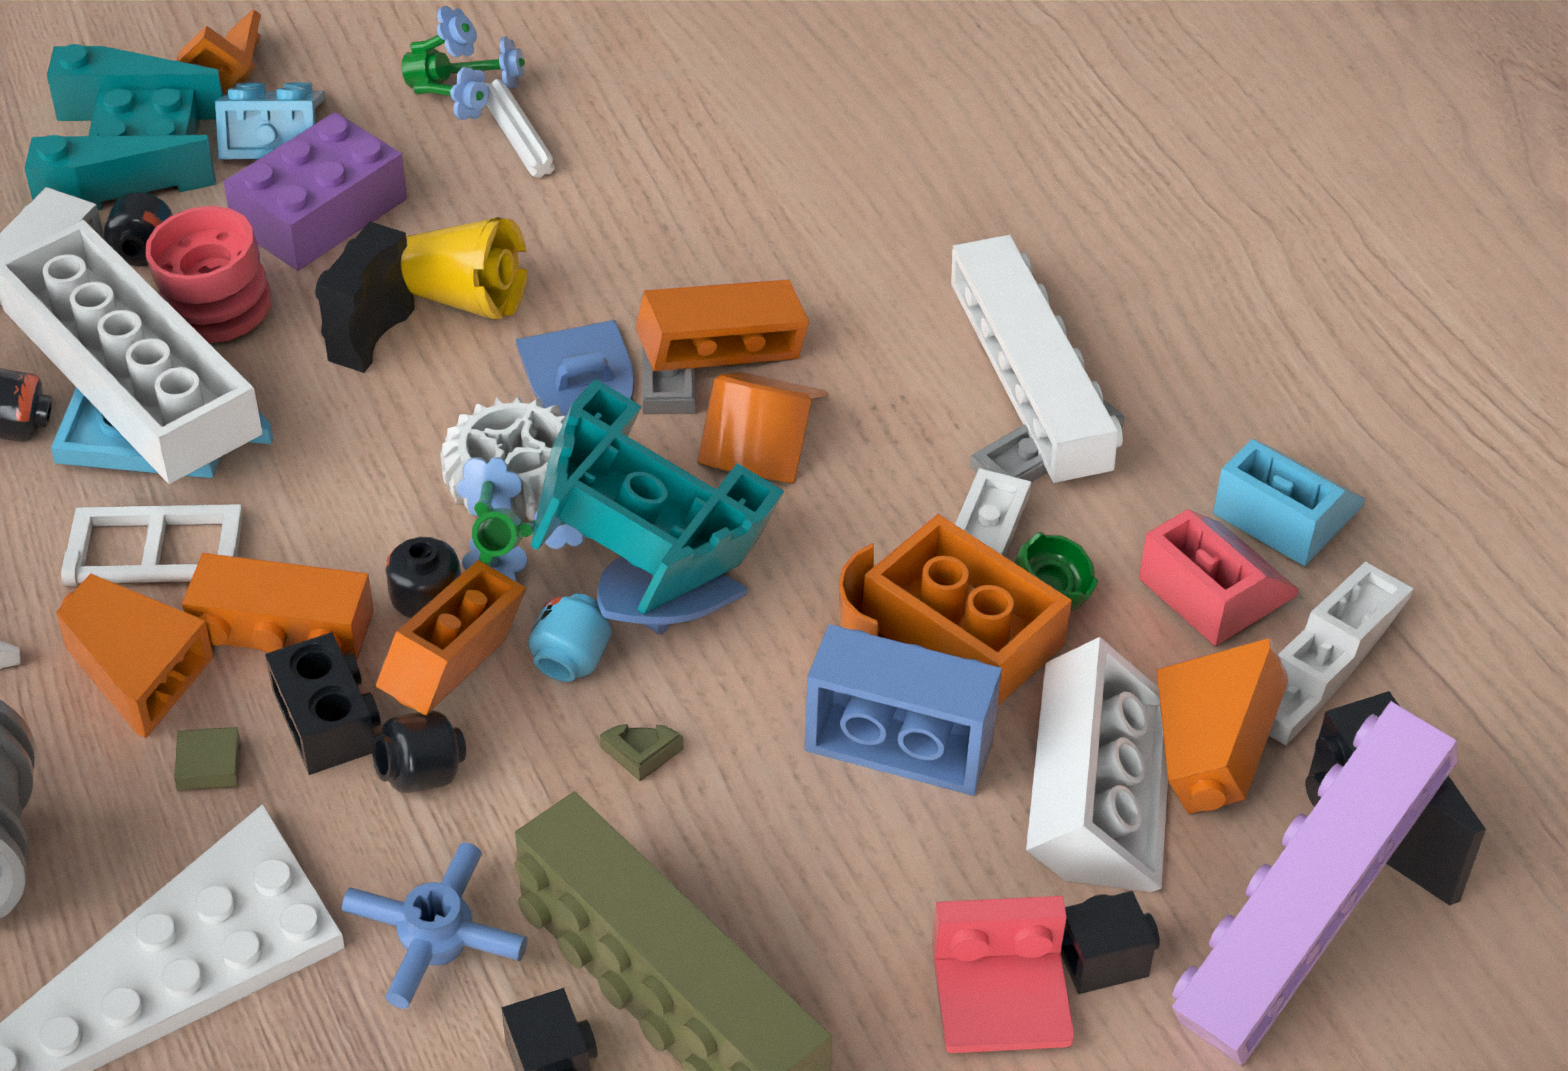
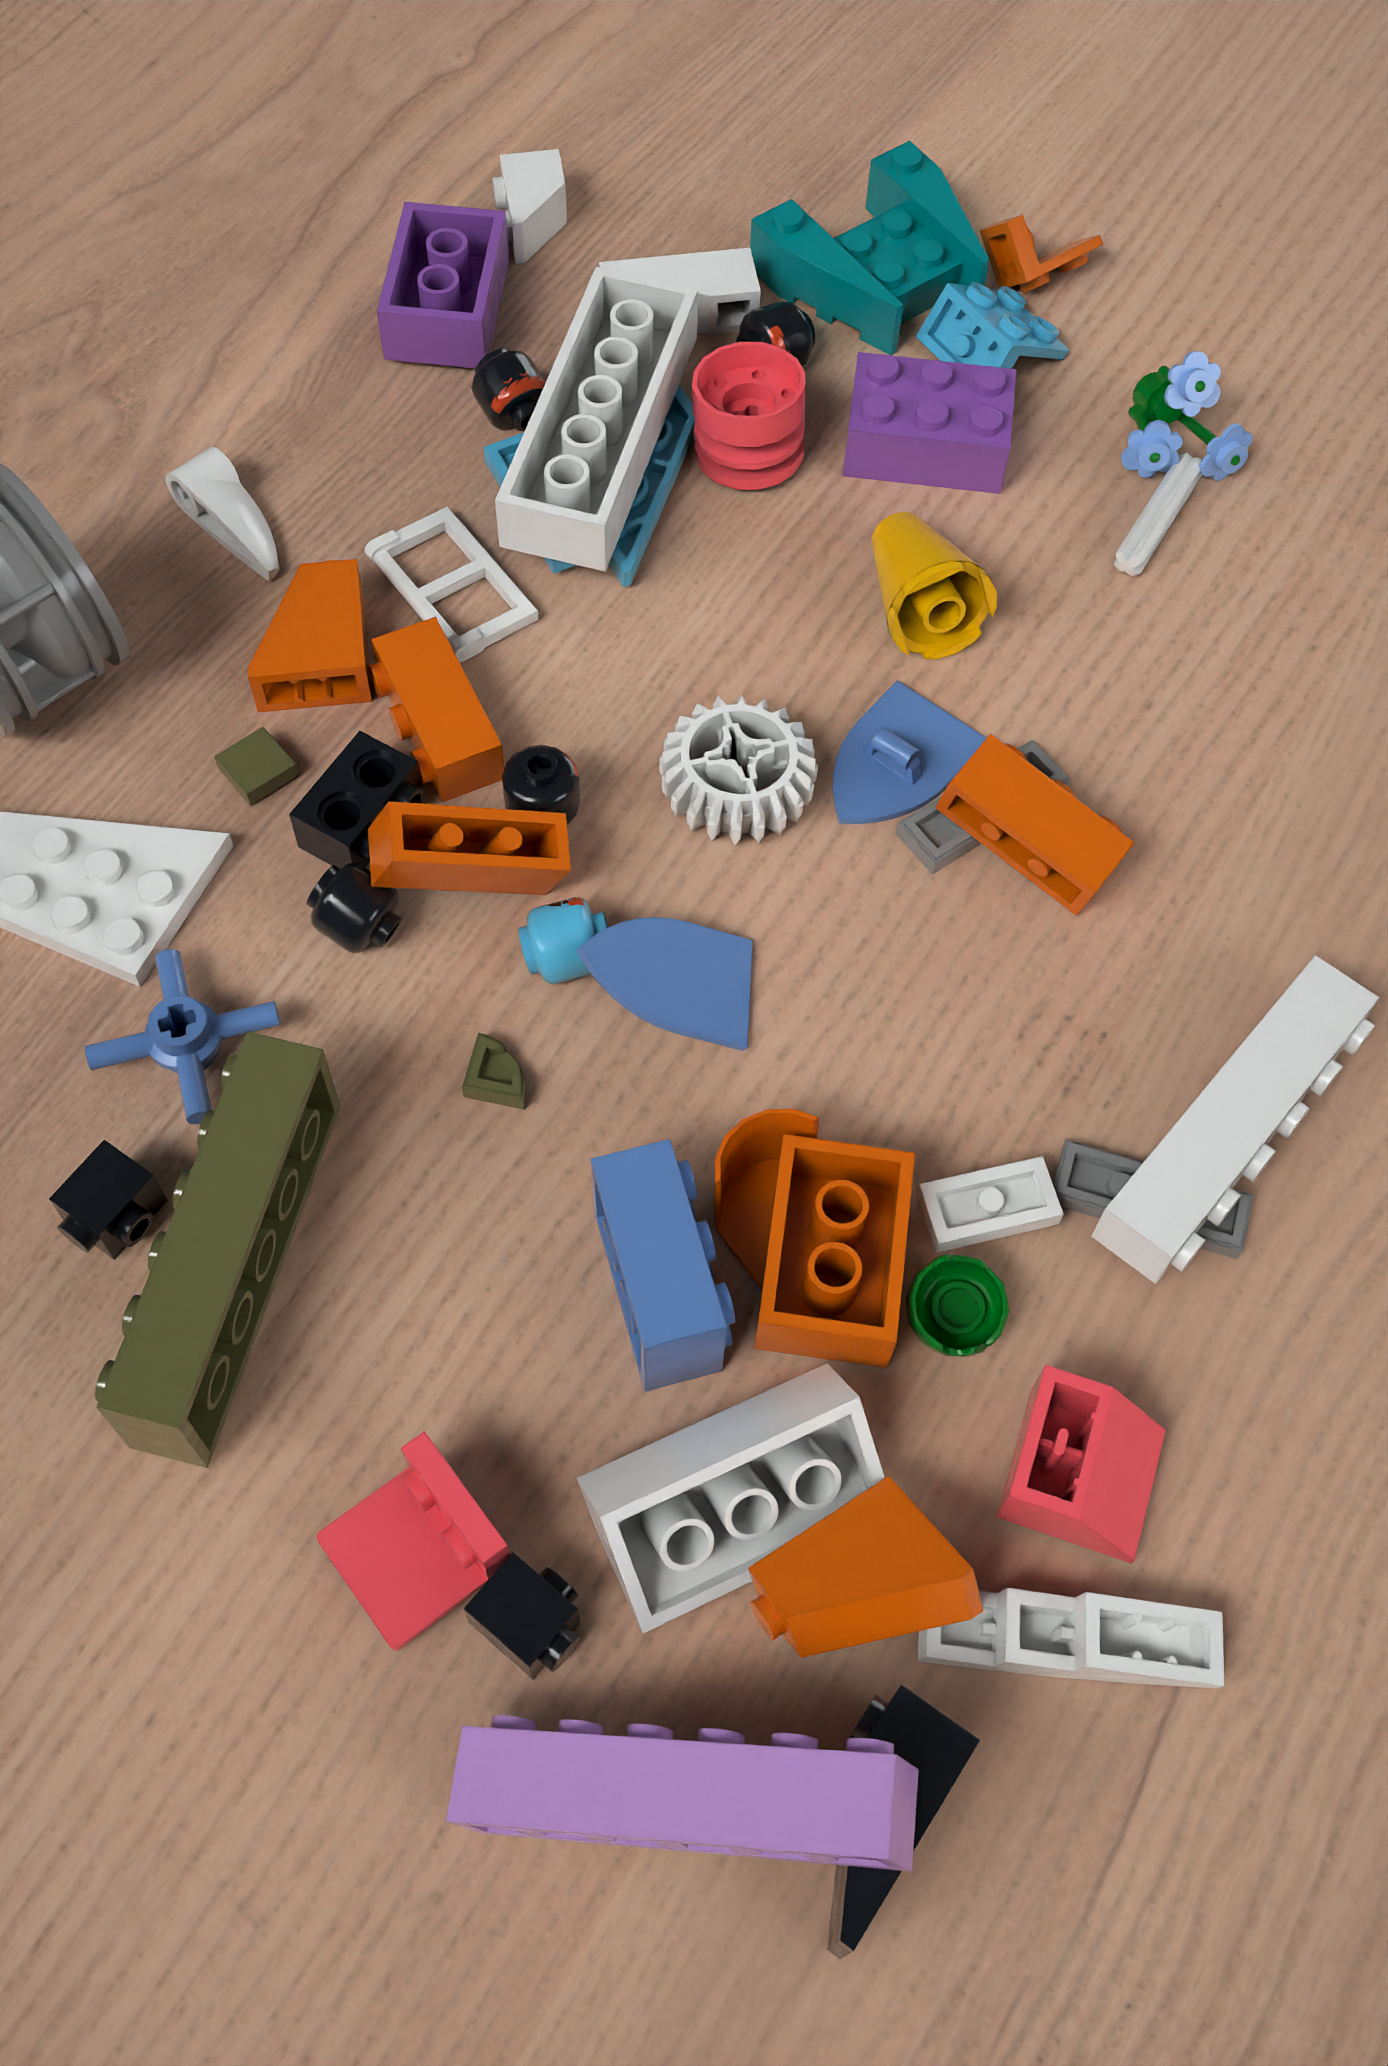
camera: 55 degrees right, 15 degrees up
(363, 295) = (818, 534): black brick -> none
(498, 529) = (614, 826): plant -> none
(645, 503) = (714, 898): teal wedge -> none
(756, 425) = (948, 926): orange piece -> none
(1283, 501) = (1250, 1480): medium azure slope -> none

